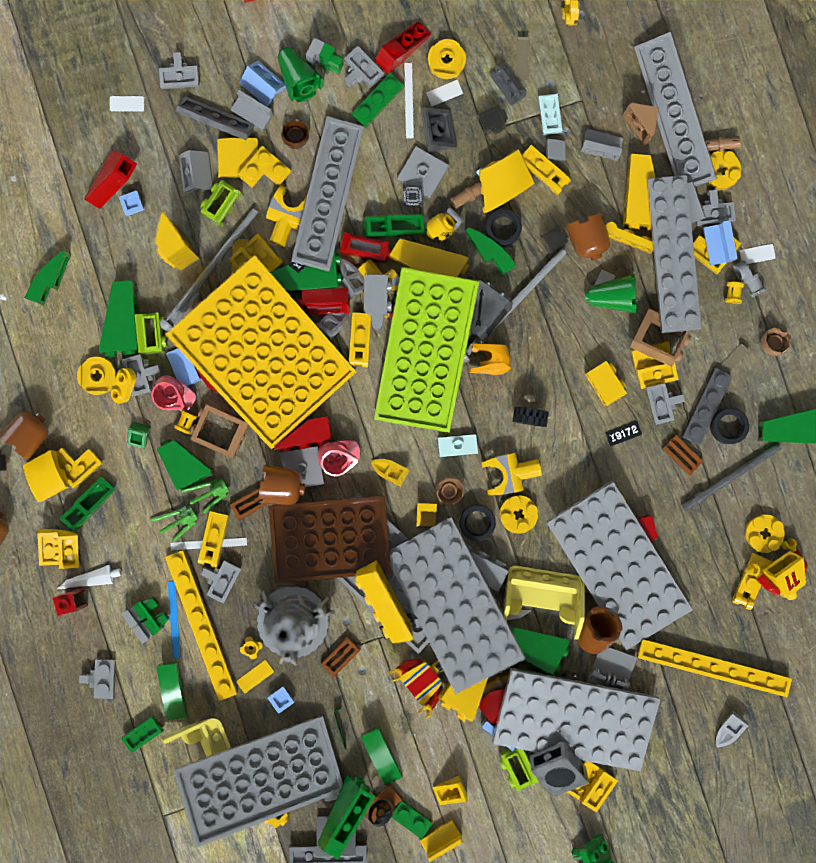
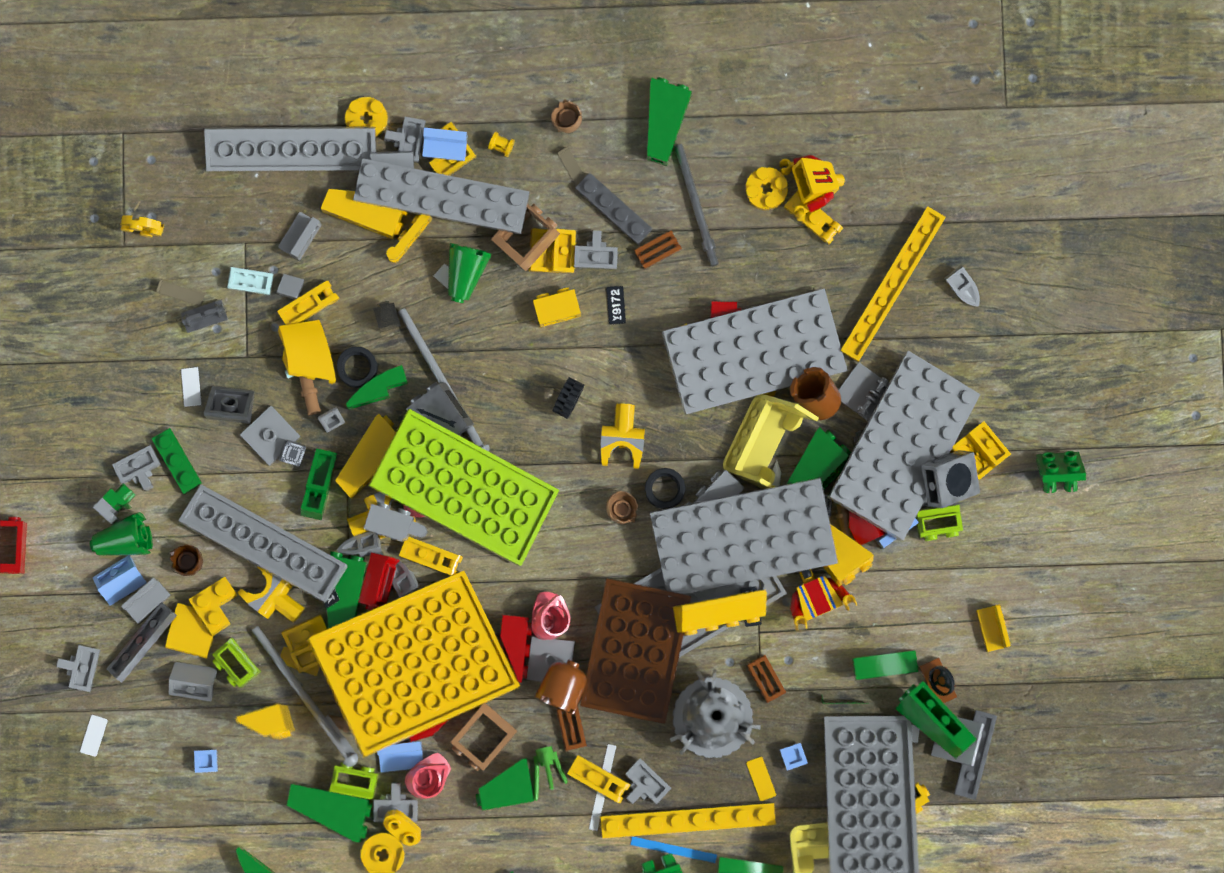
camera: 80 degrees left, 5 degrees down
(110, 179) = (172, 775): red slope -> none
(138, 435) = (461, 829): green slope -> none
(186, 429) = (462, 772): yellow bush -> none
(187, 517) = (565, 800): bright green plant -> none
(247, 651) = (735, 773): yellow plate -> none
(365, 248) = (333, 520): red window -> none
(390, 471) = (582, 565): yellow plate -> none
(401, 47) = (128, 417): red slope -> none
(409, 100) = (187, 427): white sticker -> none
(411, 819) = (963, 654): green plate -> none
(426, 514) = (640, 540): yellow panel -> none
(439, 51) = (151, 362): yellow plate -> none
(440, 227) = (336, 433): yellow head -> none
(451, 791) = (944, 602): yellow slope -> none
(457, 445) = (576, 485): light aqua plate -> none
(492, 120) = (238, 344): clear smoke brick -> none
(497, 360) = (497, 415): light orange helmet -> none
(529, 511) = (669, 454): yellow plate -> none
(589, 237) = (395, 278): dark orange cylinder -> none
(642, 120) = (289, 186): medium nougat slope -> none
(723, 143) = (339, 108): medium nougat pin -> none
(743, 430) = (642, 175): black tyre -> none
(753, 282) = (495, 121): light grey connector -> none
(757, 254) = (467, 107): white sticker -> none

